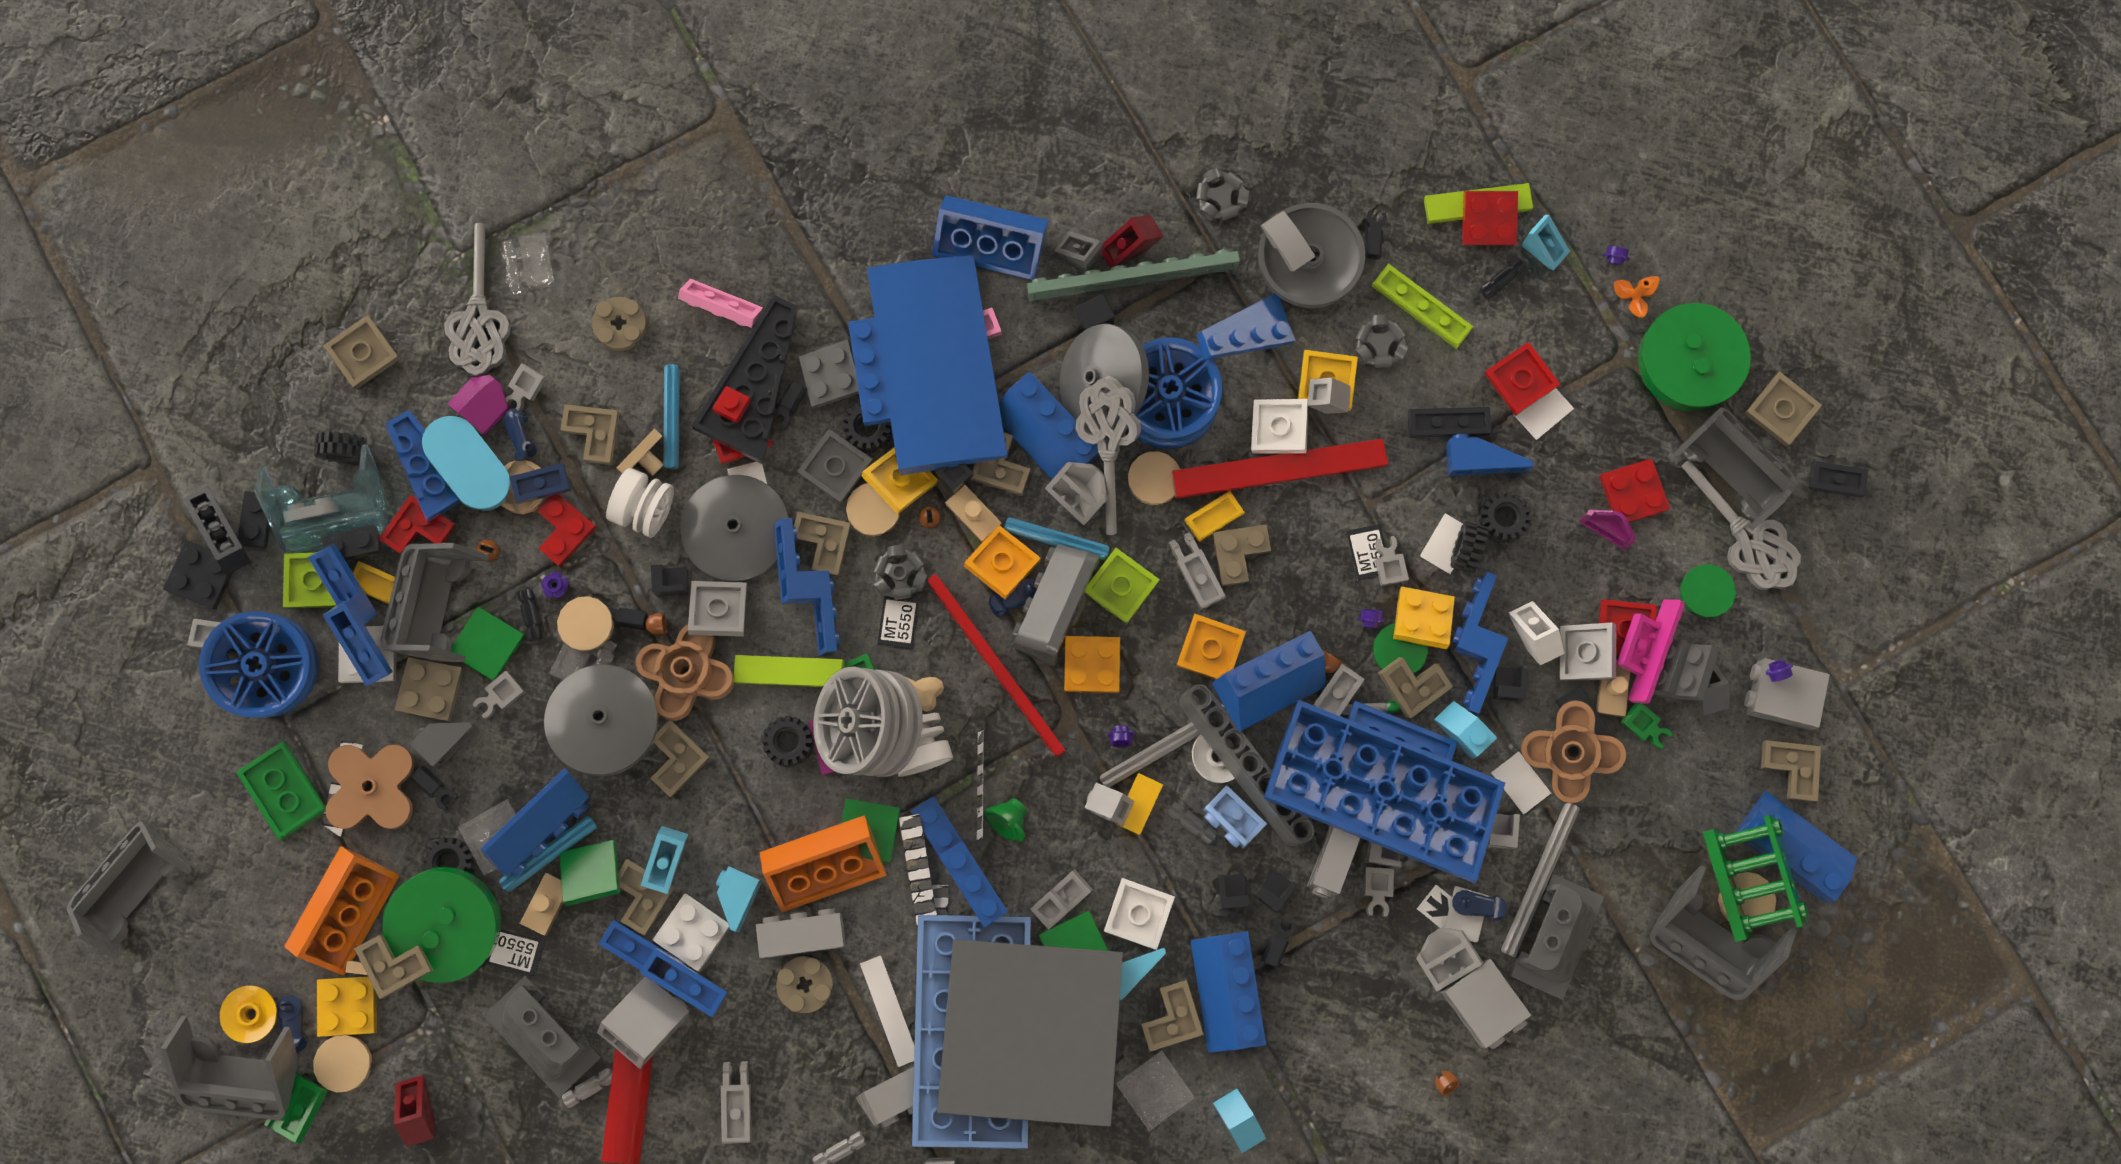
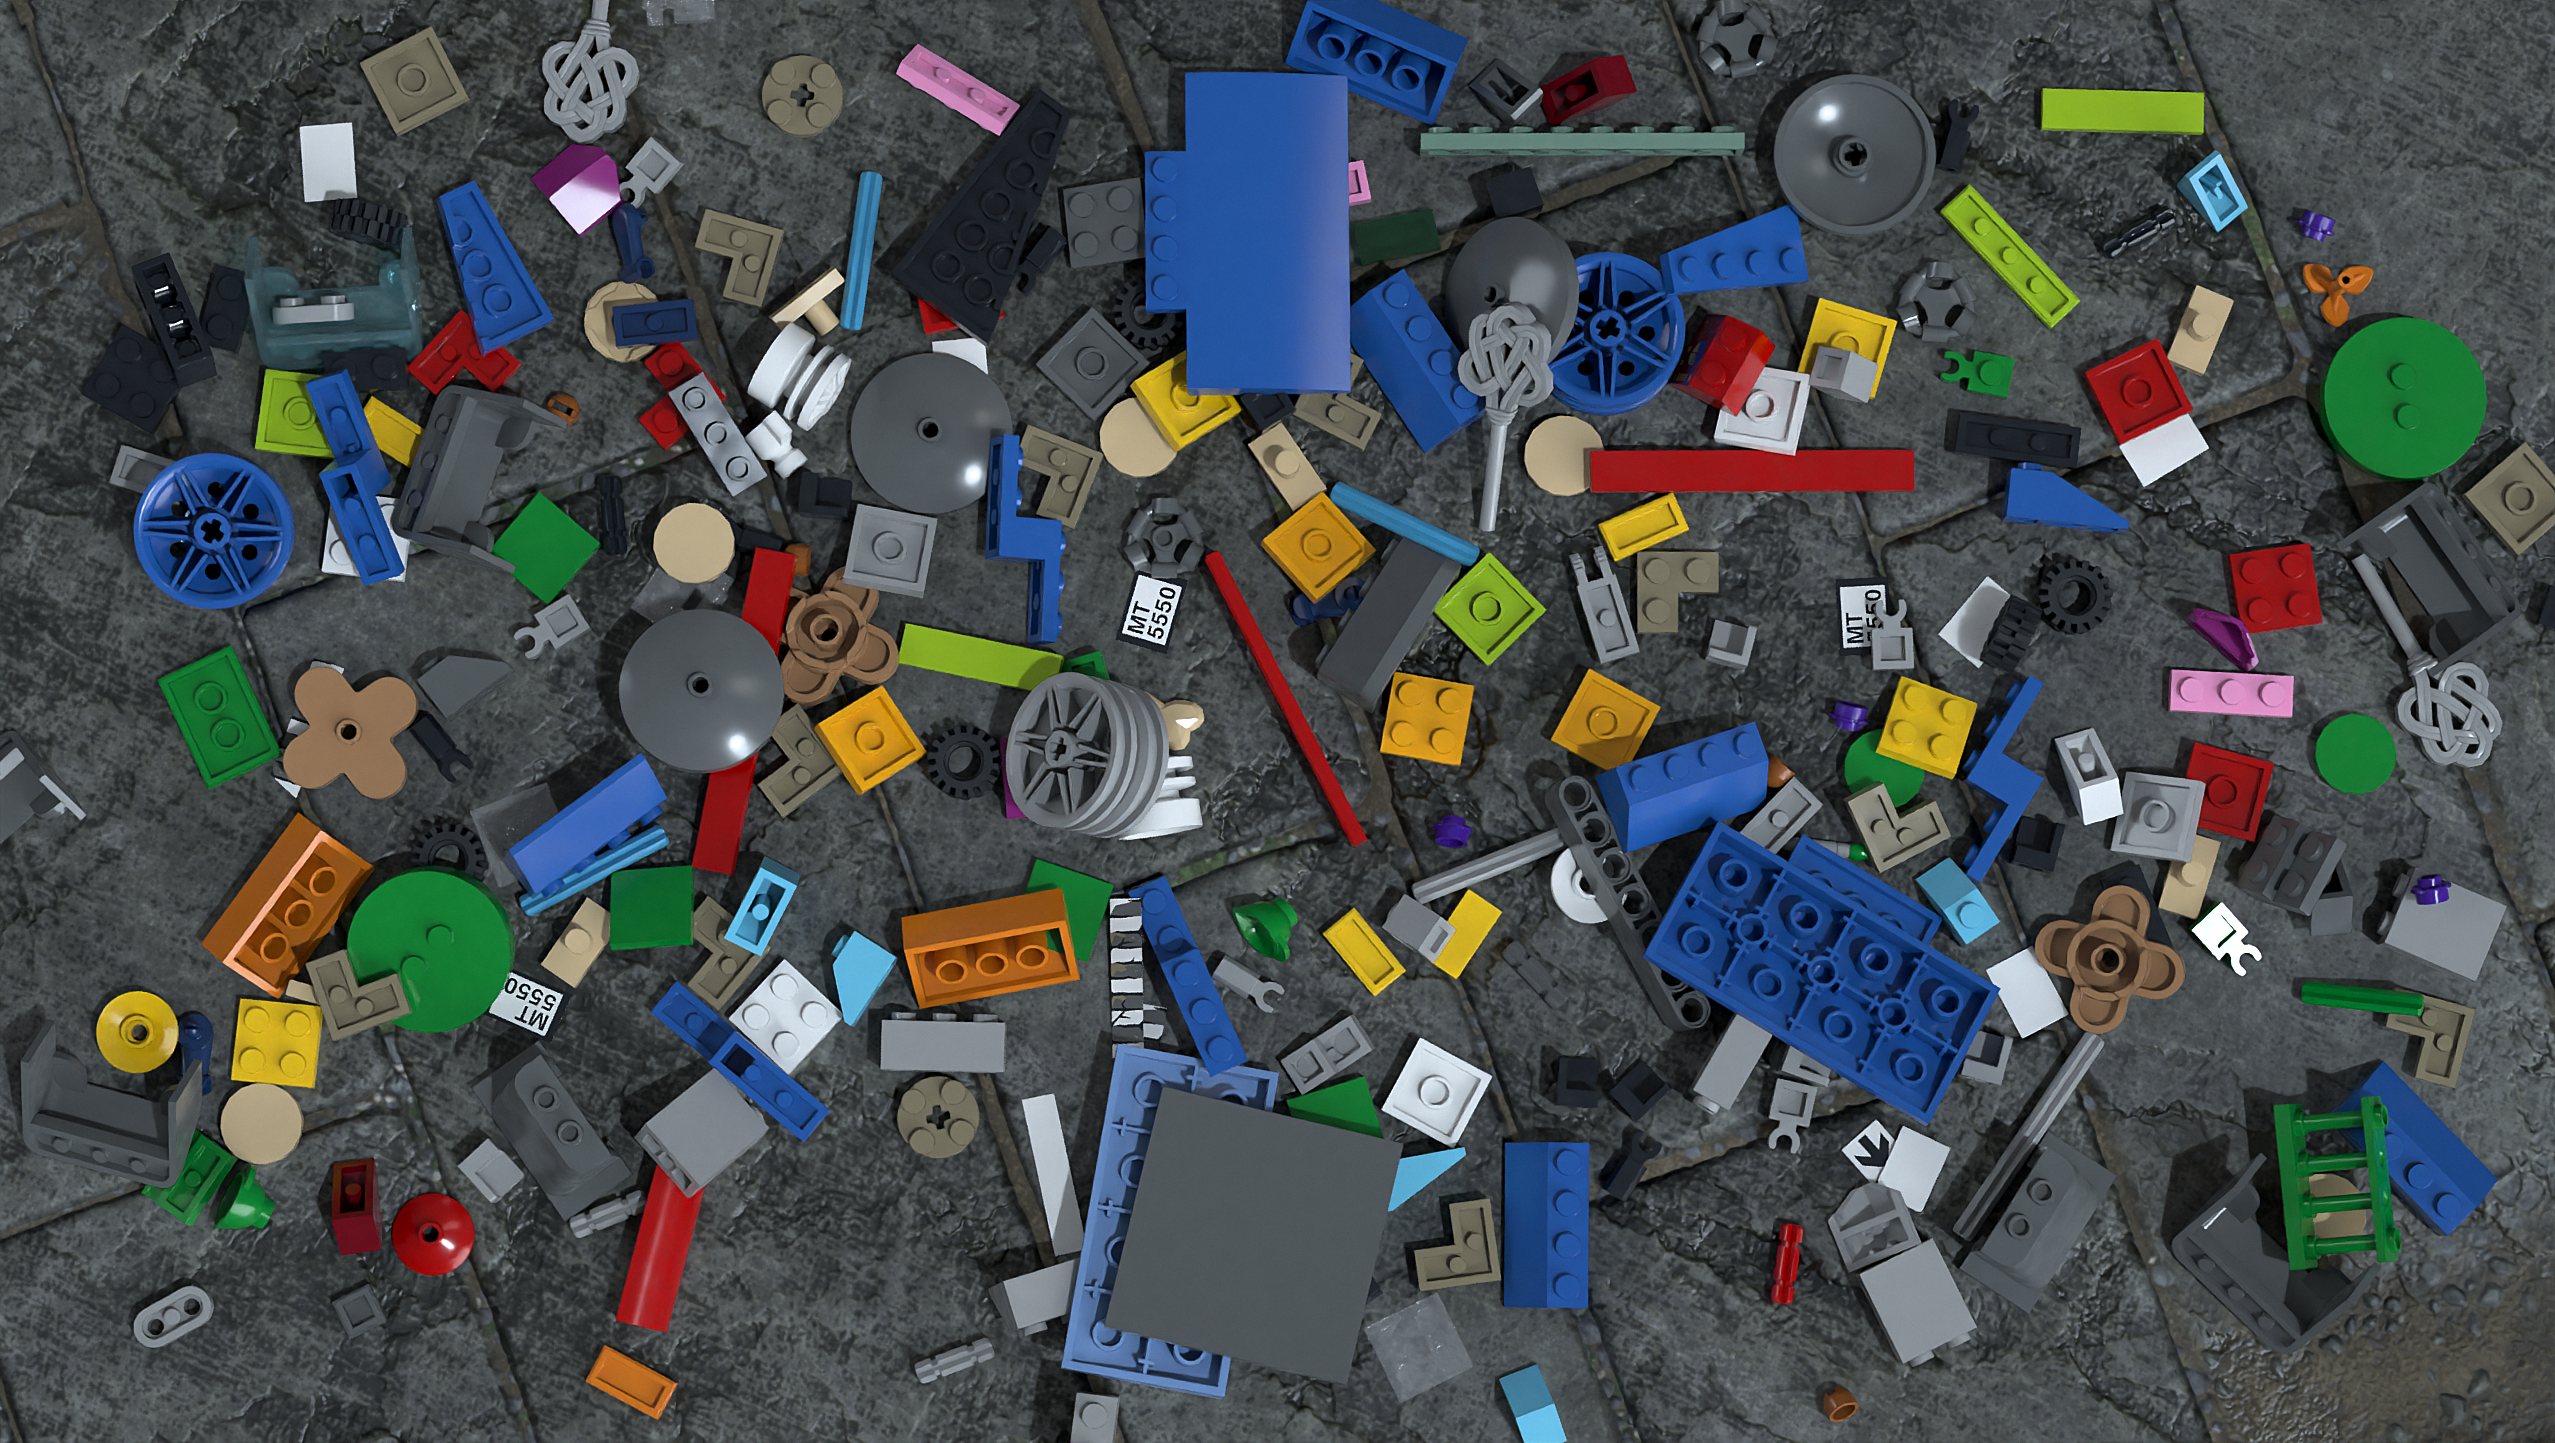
camera: 10 degrees right, 5 degrees up
(311, 413) = (328, 162): none -> white sticker
(336, 1121) = (244, 1203): none -> green piece
(429, 689) = (451, 603): dark tan plate -> none
(466, 463) = (550, 276): medium azure tile -> none
(484, 1121) = (453, 1240): none -> red dish
(503, 1070) = (491, 1170): none -> light grey panel
(559, 590) = (662, 485): dark purple plate -> none
(589, 548) = (715, 432): none -> brick
(629, 549) = (772, 442): none -> white piece
(633, 781) = (730, 789): none -> red tile
(721, 736) = (870, 740): none -> light orange plate
(731, 404) = (955, 251): red plate -> none
(736, 1106) = (815, 1274): light grey hinge -> none
(923, 517) = (1212, 462): dark orange hinge -> none
(980, 787) = (1235, 870): sticker -> none
(998, 859) = (1245, 982): none -> light grey bar
(1022, 354) = (1396, 237): none -> clear green tile
(1075, 826) = (1364, 952): none -> yellow tile
(1079, 489) = (1449, 458): light grey slope -> none
(1233, 817) = (1597, 975): light blue bracket -> none
(1249, 400) = (1722, 362): none -> red slope
(1285, 584) = (1730, 645): none -> light grey panel
(1288, 241) = (1821, 131): light grey slope -> none
(1393, 992) = (1786, 1263): none -> red axle
(1420, 383) = (1986, 373): none -> green plate
(1474, 904) = (1929, 1158): dark blue piece -> none
(1490, 217) = (2134, 138): red plate -> none
(1554, 333) = (2199, 330): none -> tan tile
(1618, 564) = (2230, 693): none -> bright pink plate
(1647, 648) = (2245, 824): dark pink bracket -> none
(1745, 751) = (2362, 998): none -> green axle

